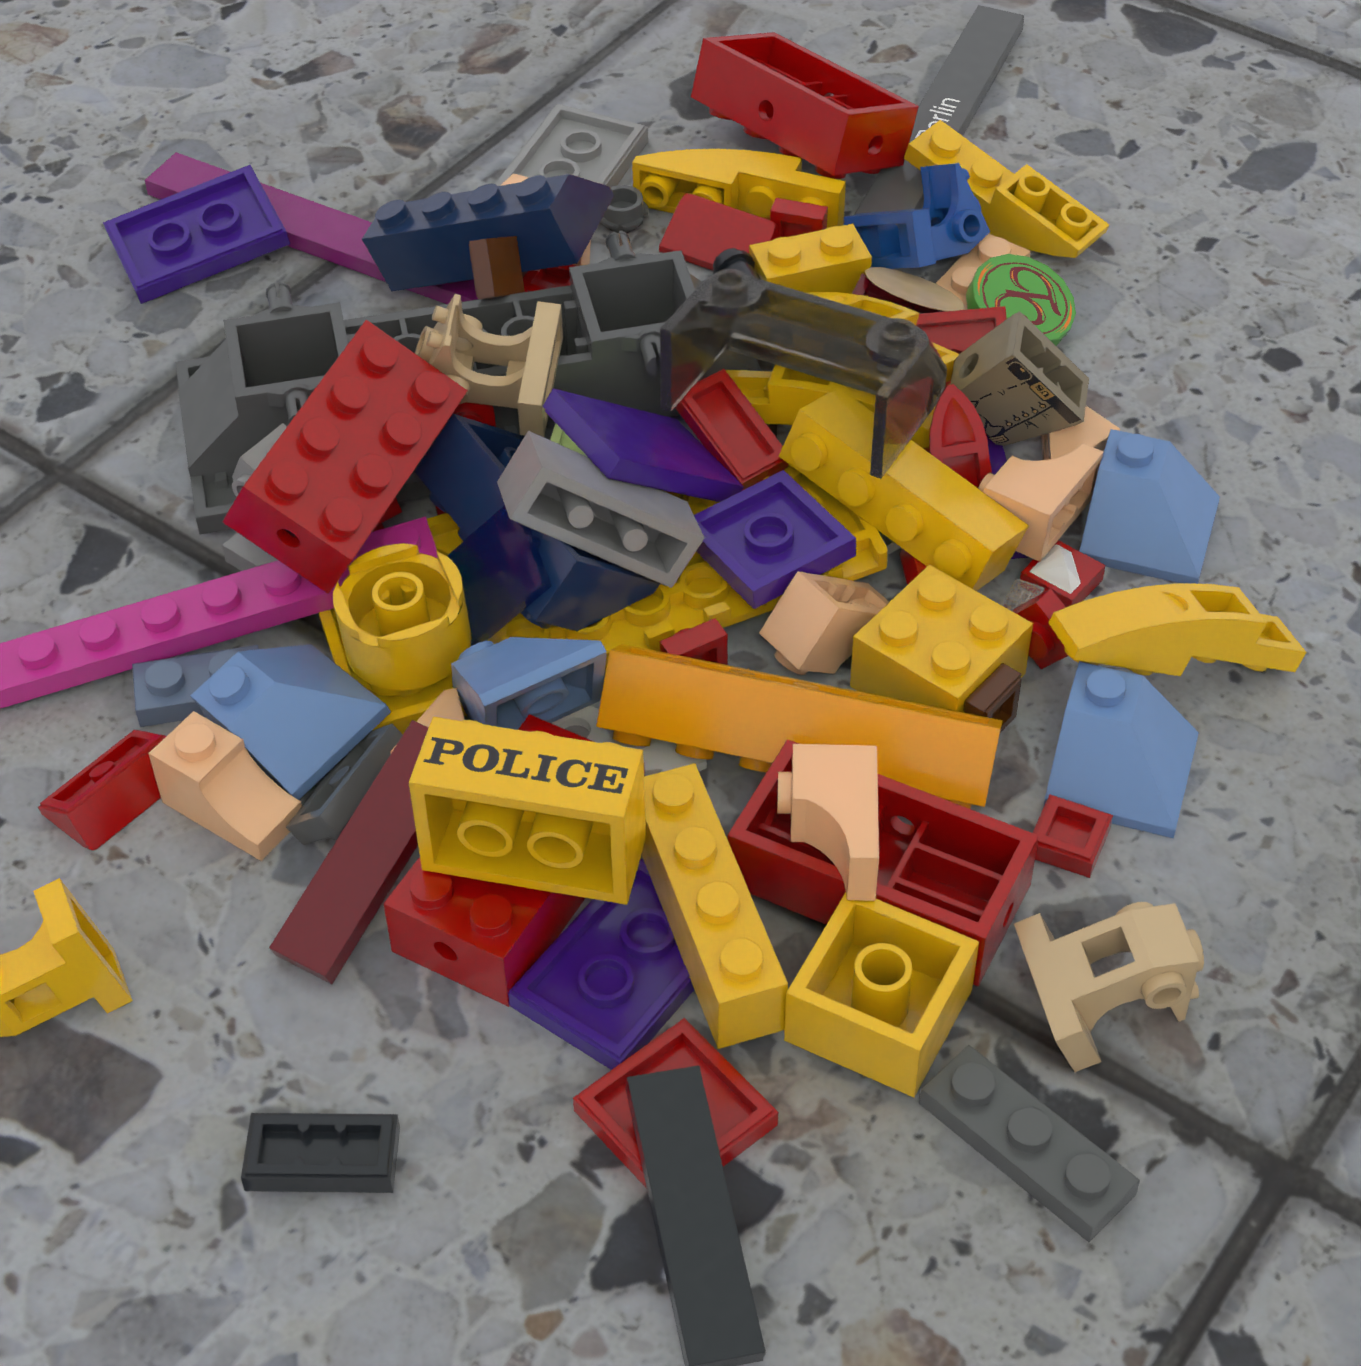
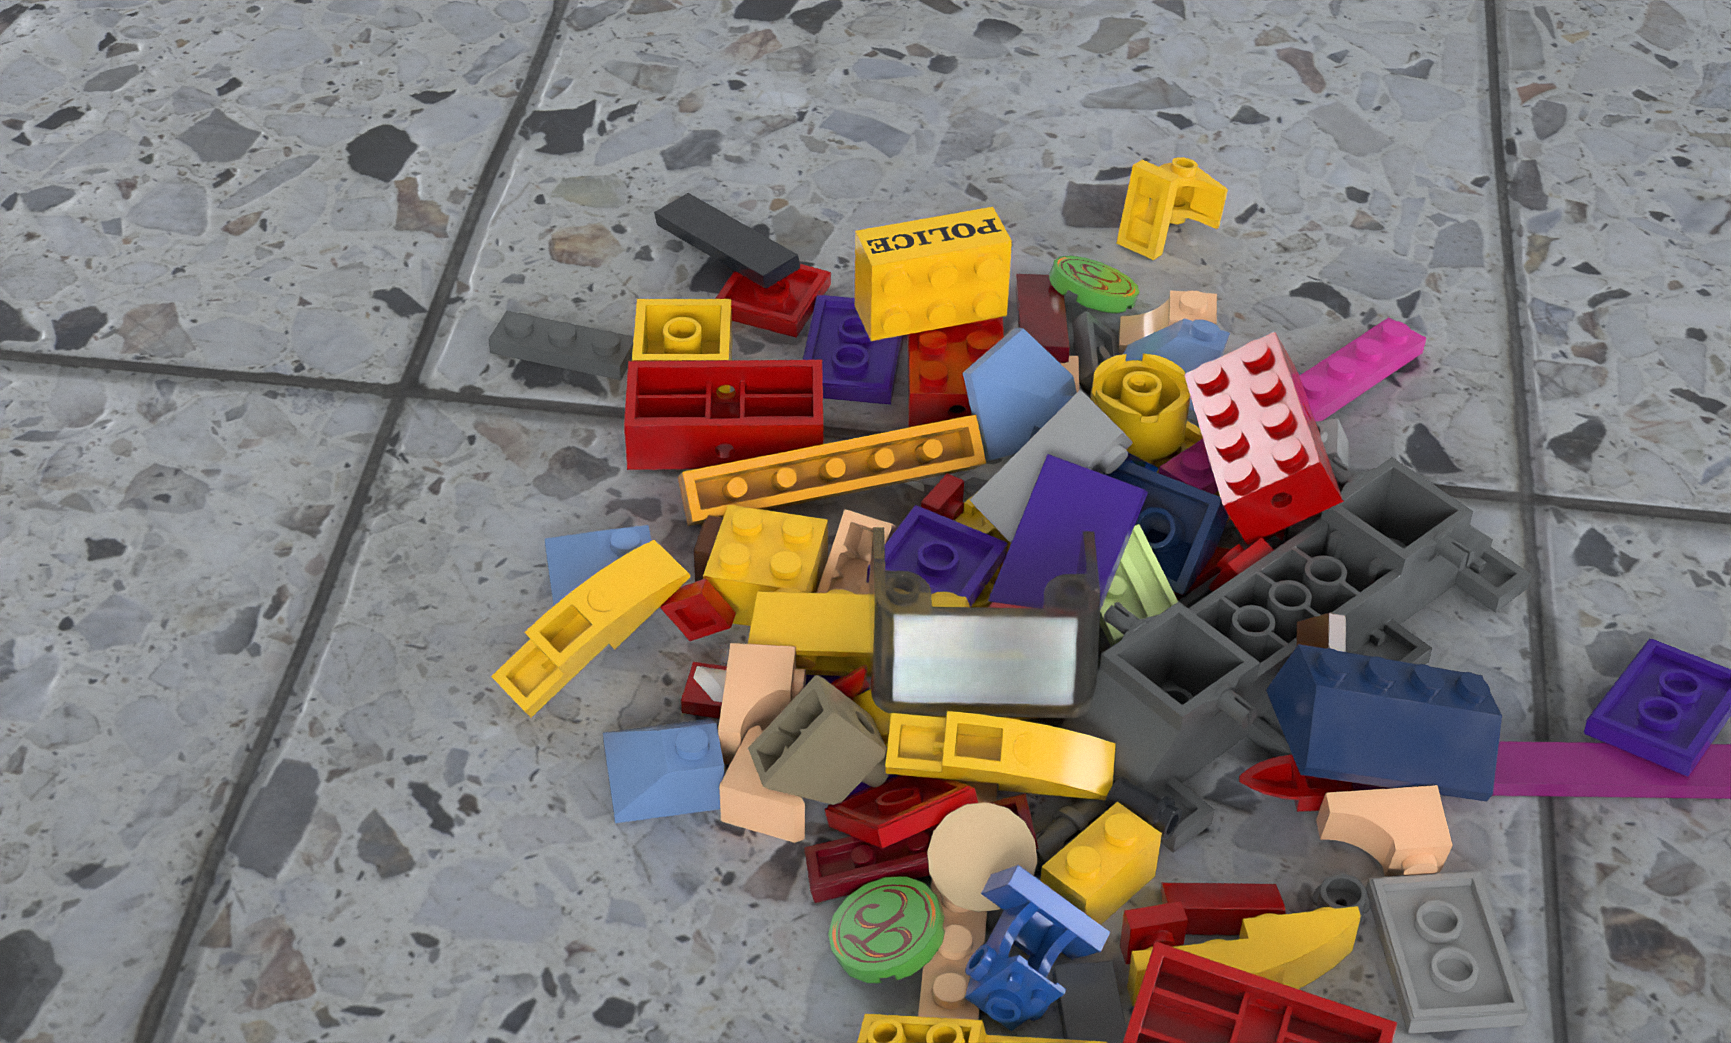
camera: 150 degrees right, 5 degrees down
(106, 792) = (1245, 315): red slope -> none
(250, 894) = (1094, 283): none -> bright green tile
(321, 1152) = (942, 201): black plate -> none
(530, 359) = (1233, 555): tan tile -> none
(711, 910) = (855, 368): yellow brick -> none
(836, 809) = (754, 366): light nougat arch -> none
(1071, 835) = (615, 508): red tile -> none
(1075, 999) = (535, 401): tan tile -> none

